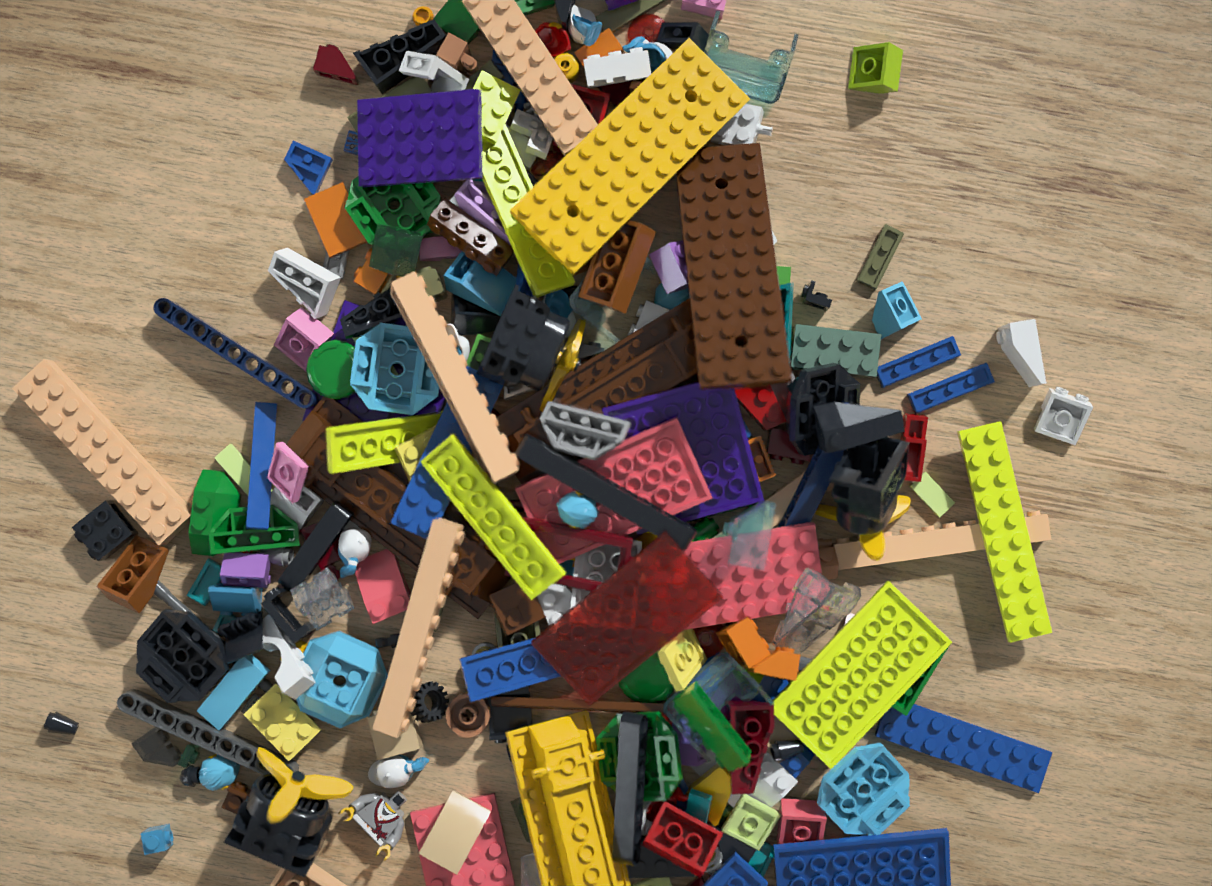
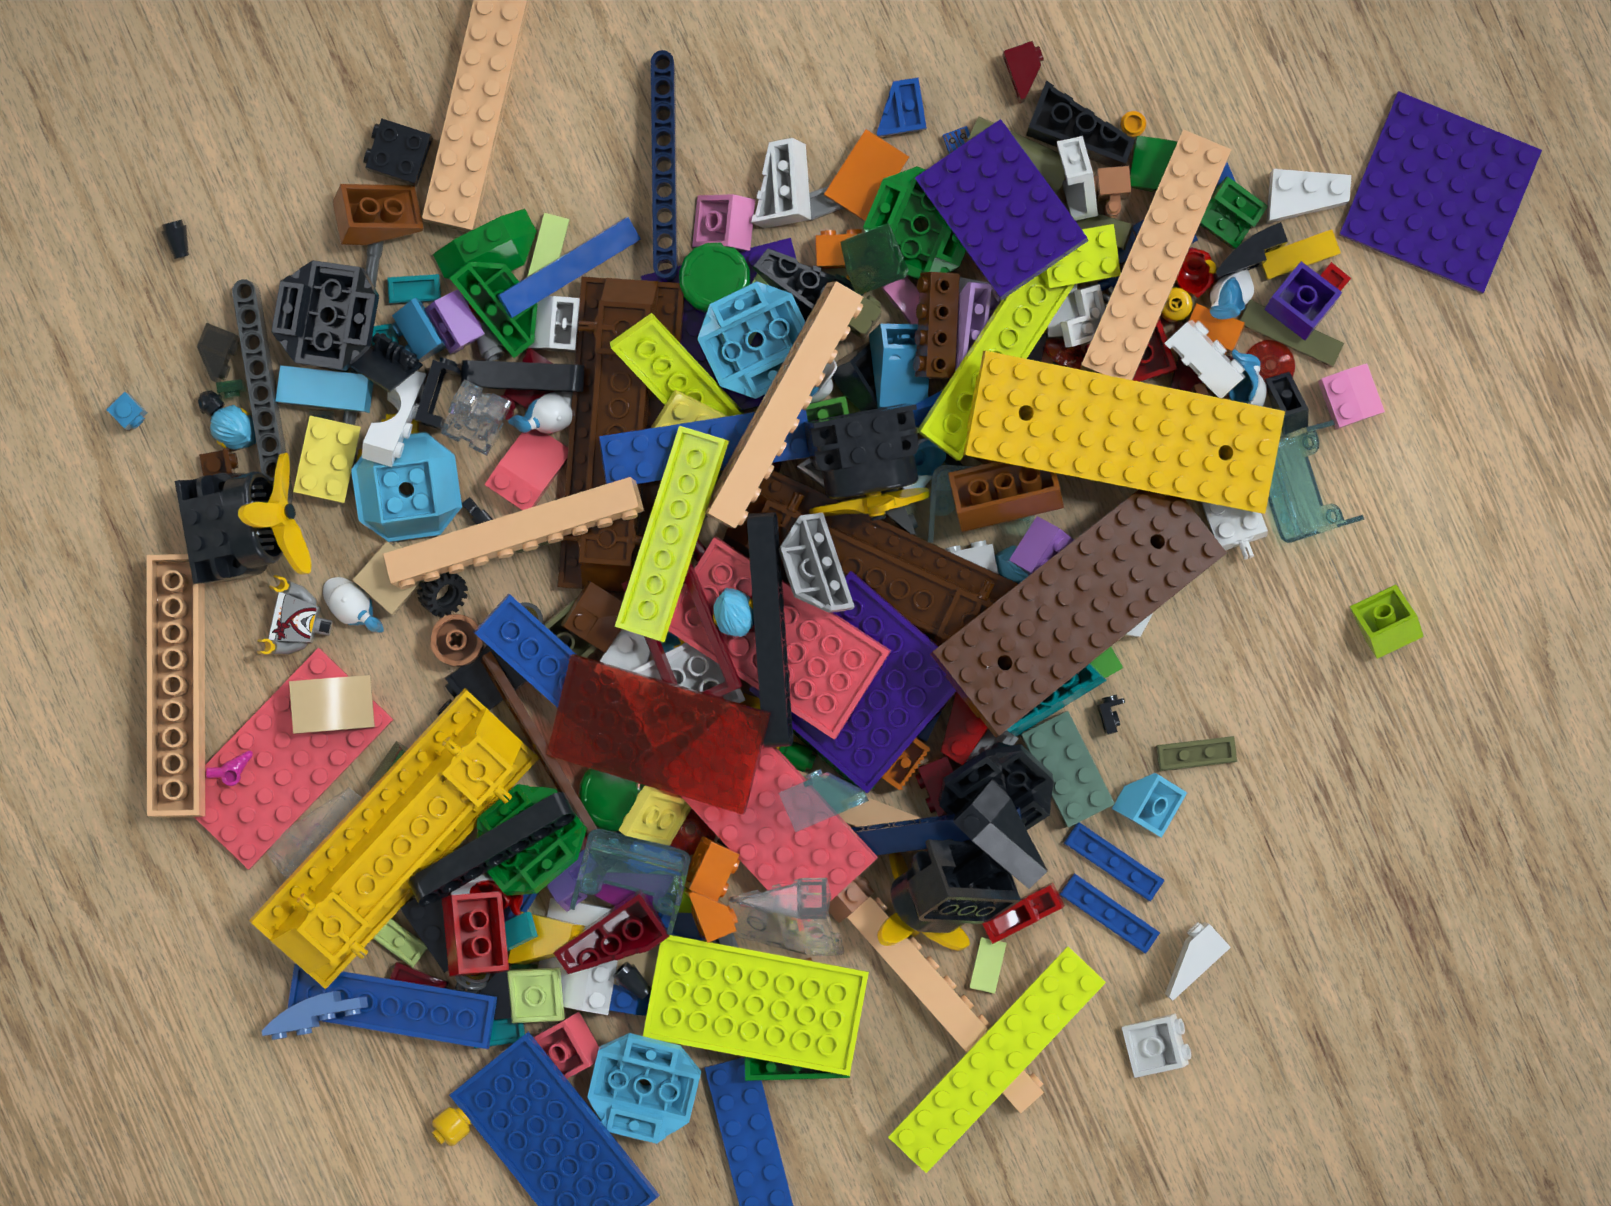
camera: 60 degrees right, 0 degrees up
(287, 472) = (581, 300): bright pink tile -> none
(713, 727) = (608, 887): green slope -> none

